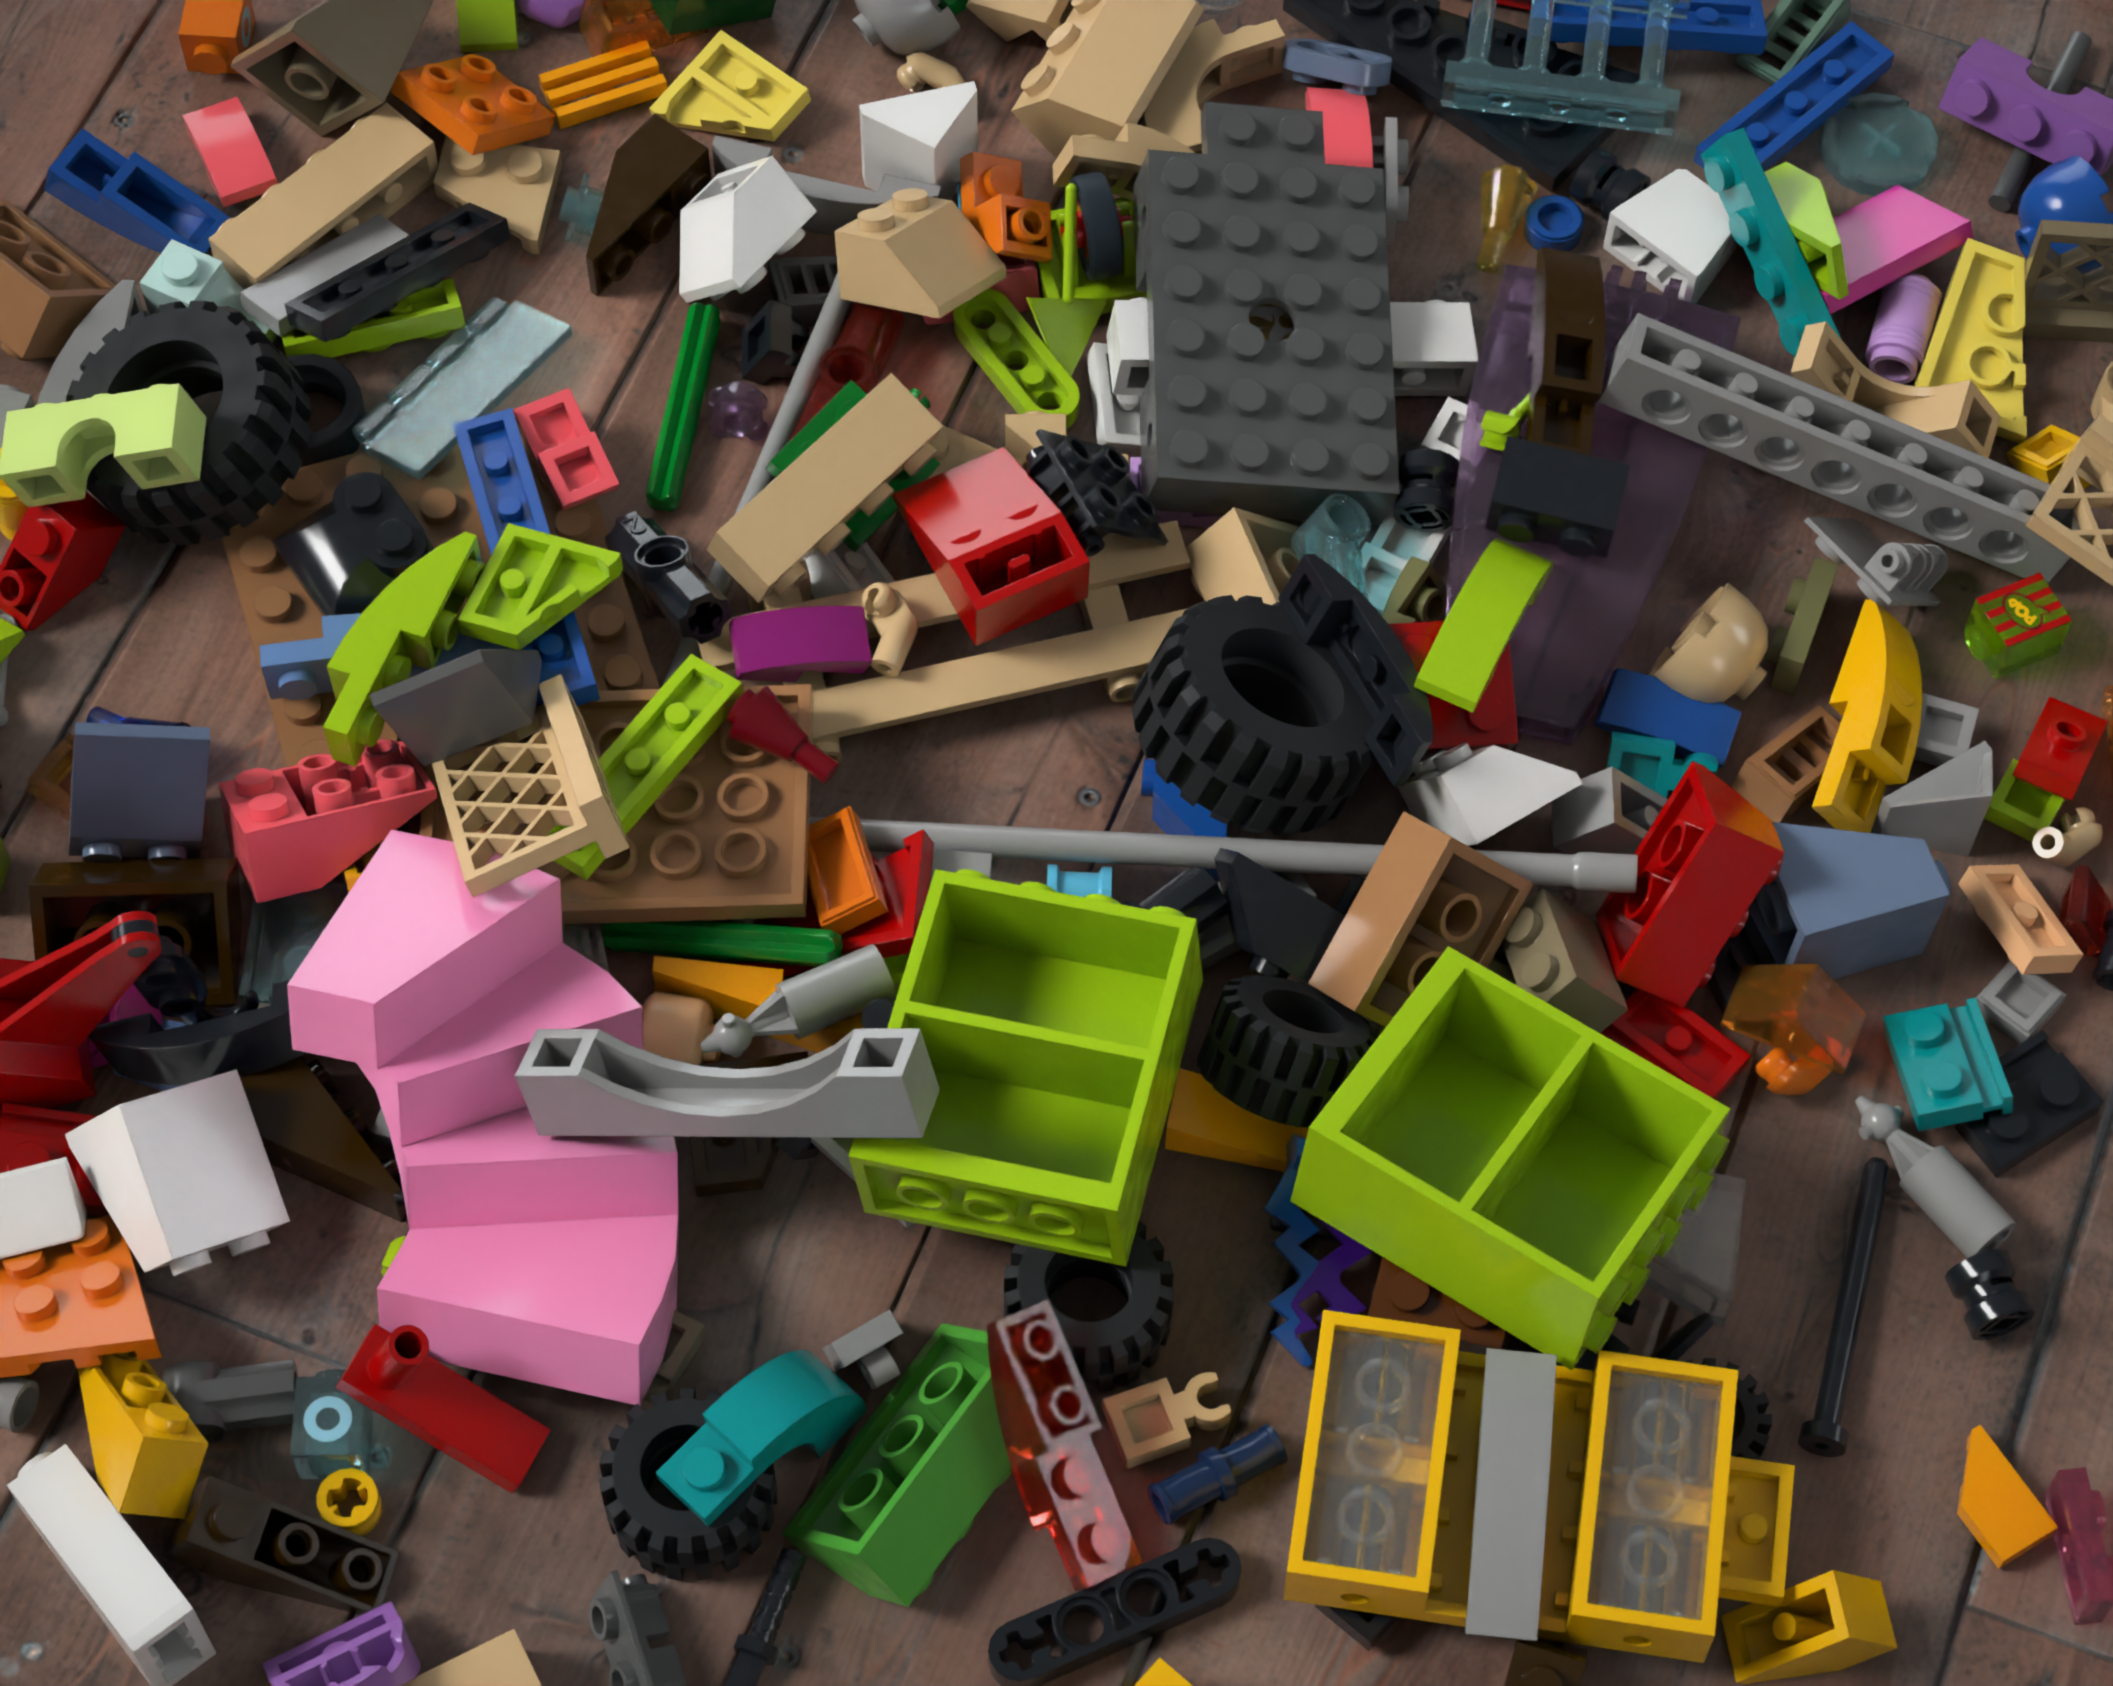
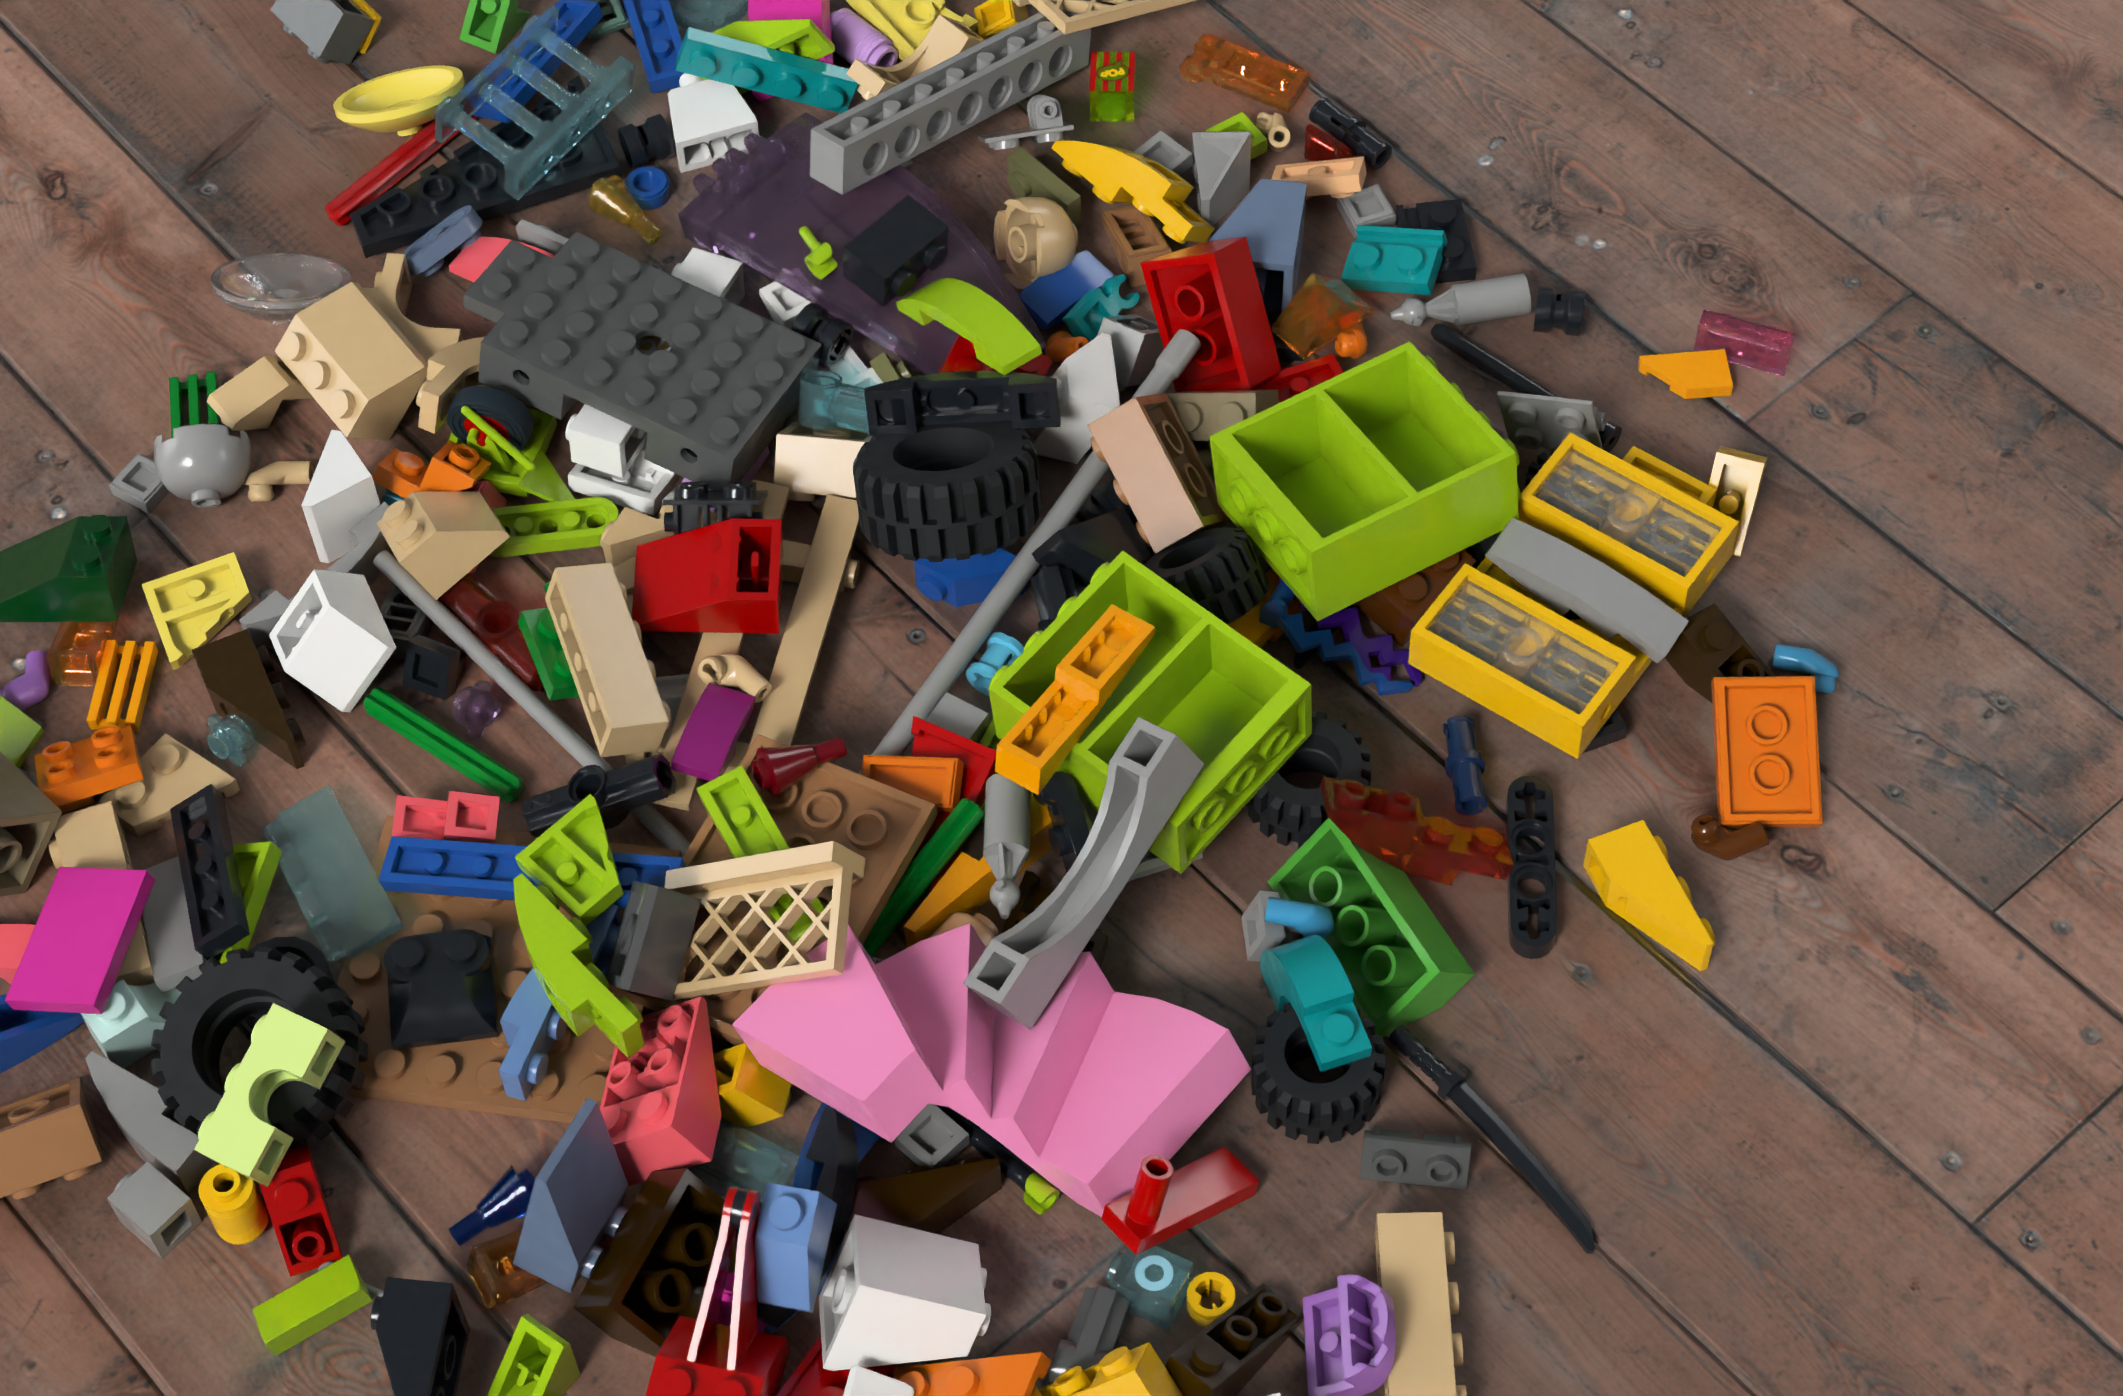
camera: 60 degrees left, 5 degrees down
(159, 1018) = (792, 1245): none -> medium blue slope
(241, 199) = (80, 940): none -> dark pink tile
(879, 1390) = (1301, 916): none -> dark azure arm
(978, 963) = (1068, 706): none -> light orange slope
(1155, 1422) = (1411, 772): tan plate -> none
(1566, 349) = (789, 188): dark brown slope -> none
(1575, 752) = (1062, 345): none -> orange arm
(1791, 1353) = (1547, 420): none -> light grey hinge
(2060, 748) = (1213, 104): red plate -> none

